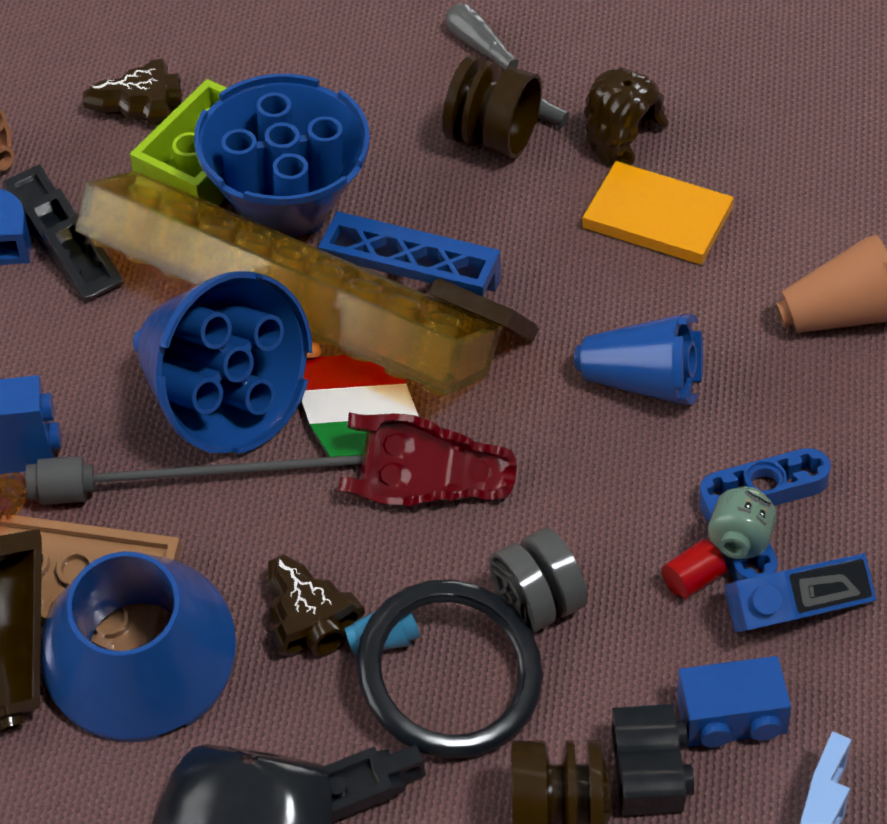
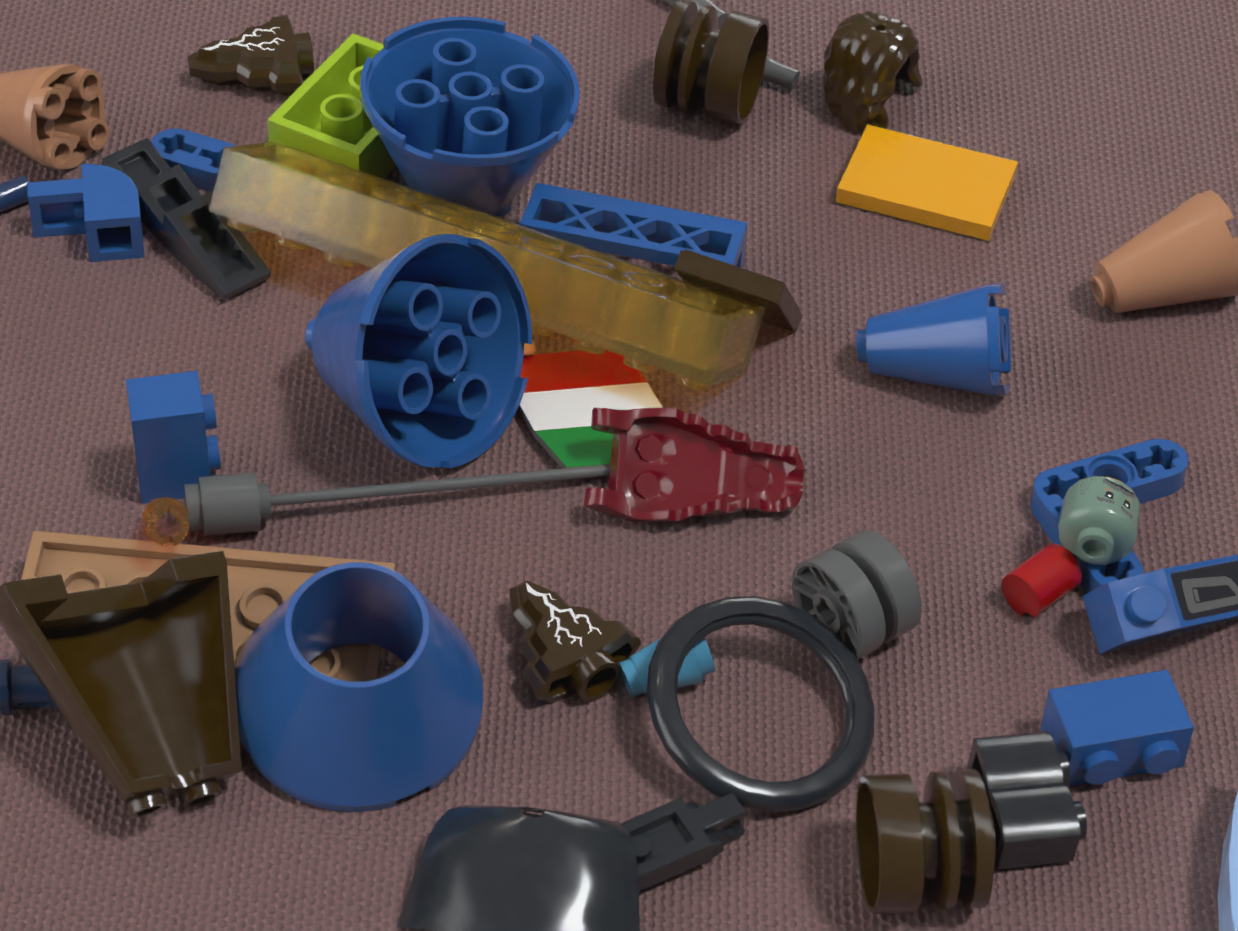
camera: 10 degrees left, 5 degrees down
(80, 171) = (195, 154): none -> blue beam

